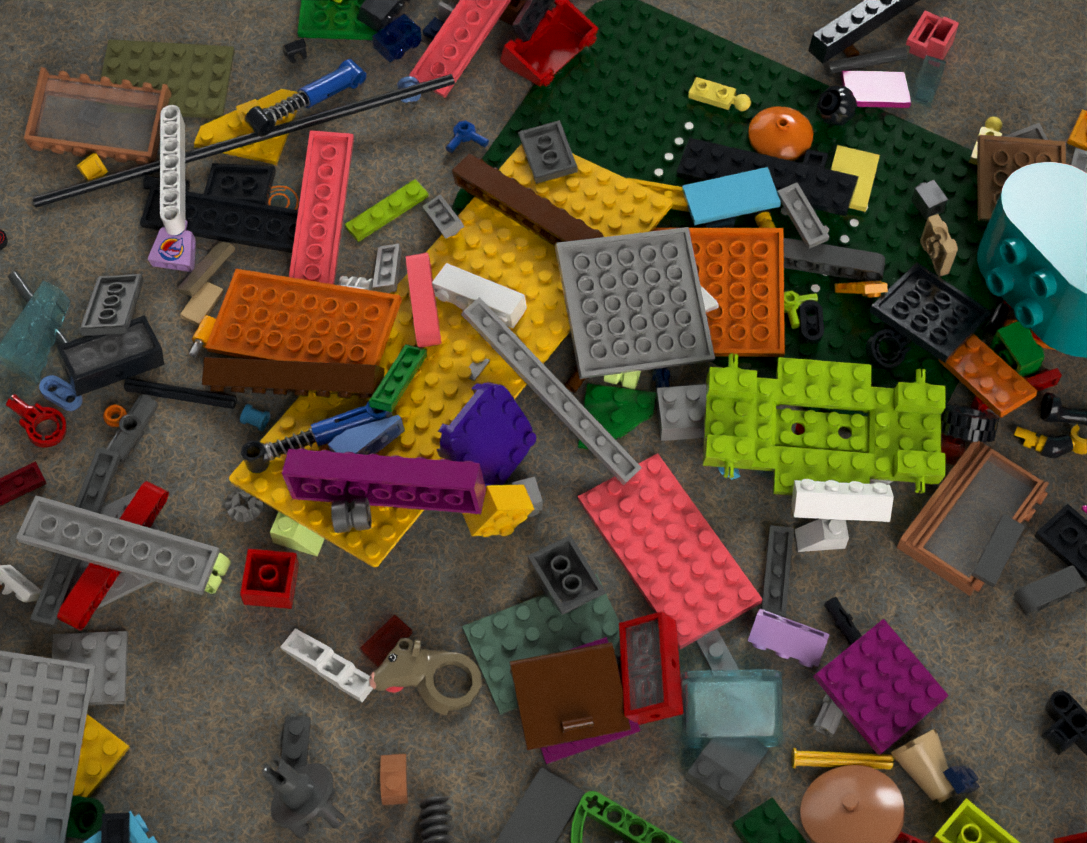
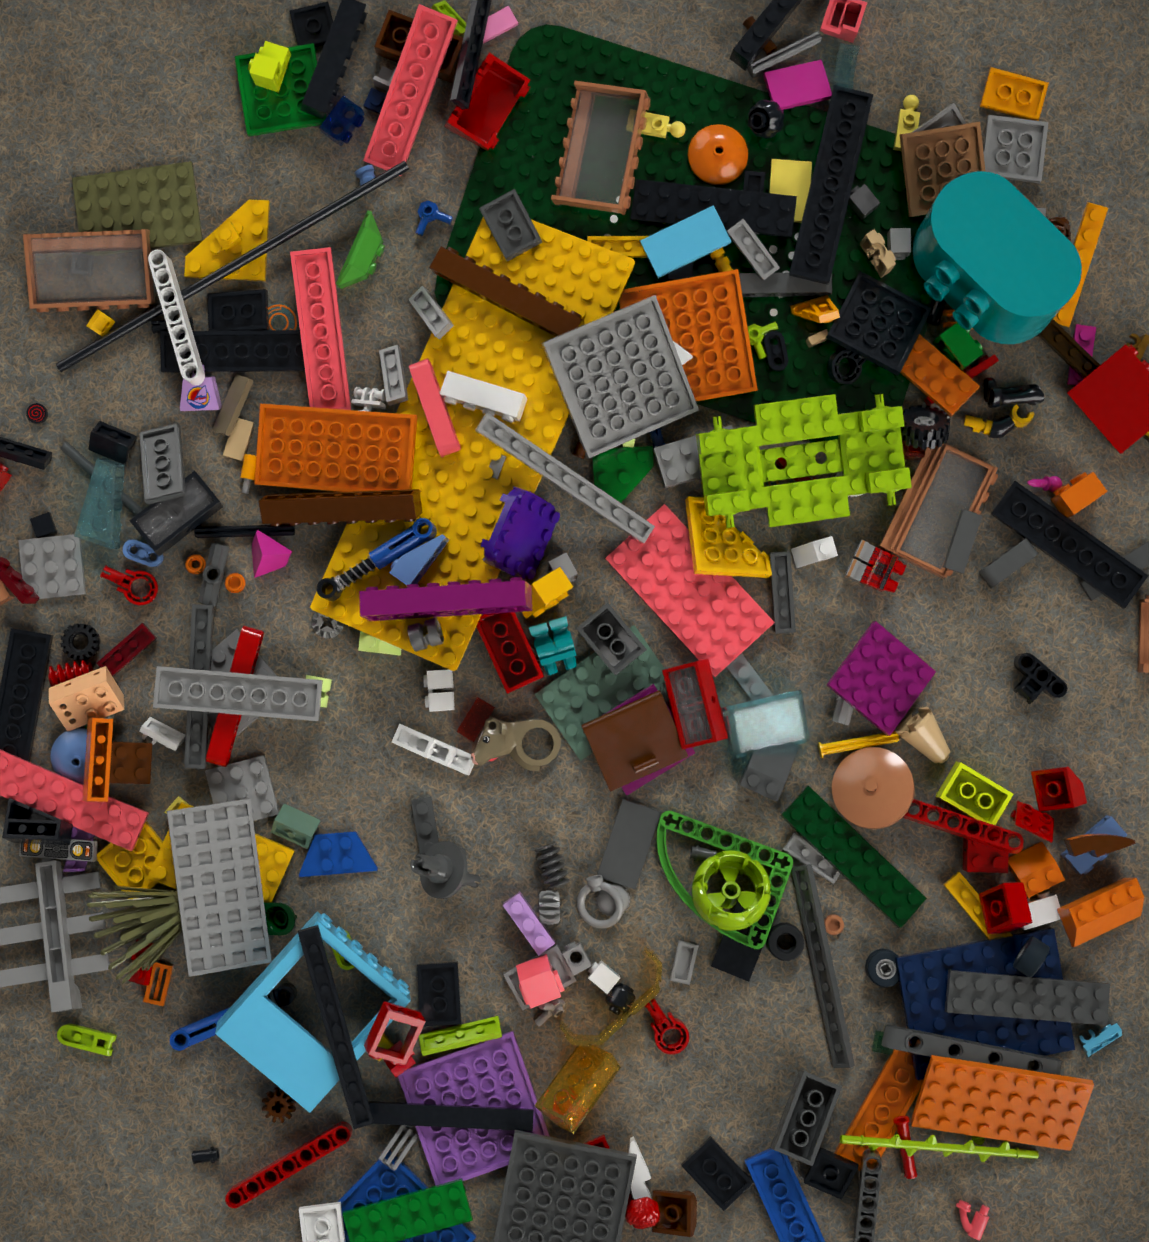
camera: 15 degrees left, 25 degrees up
(66, 278) = (111, 442): none -> black panel
(138, 719) = (295, 826): none -> sand green panel
(152, 443) = (235, 583): none -> orange plate
(178, 763) = (337, 855): none -> blue wing
(199, 420) = (268, 554): none -> dark pink slope
(254, 417) = (315, 541): dark azure bush -> none
(269, 578) = (368, 688): red brick -> none
(293, 48) = (248, 152): black tile -> none
(346, 76) = (306, 174): piece -> none
(354, 594) = (437, 680): none -> white piece
(383, 155) = (362, 254): none -> bright green wedge
(386, 210) = (377, 309): lime plate -> none
(393, 779) = (509, 832): nougat slope -> none
(398, 378) = (433, 495): green tile -> none
(444, 567) = (509, 650): none -> red brick
(498, 583) = (554, 650): none -> teal hips
(659, 101) = (601, 147): none -> clear window
(713, 508) = (722, 549): none -> yellow plate
(788, 638) = (801, 651): lavender brick -> none
(842, 500) = (828, 526): white brick -> none
(842, 620) = (842, 624): black pin -> none
(859, 317) = (817, 338): none -> tan tile
(889, 565) = (880, 567): none -> hips
(896, 178) = (831, 185): none -> black plate
(962, 779) = (955, 744): dark blue plate -> none
(966, 241) = (899, 242): none -> light grey brick

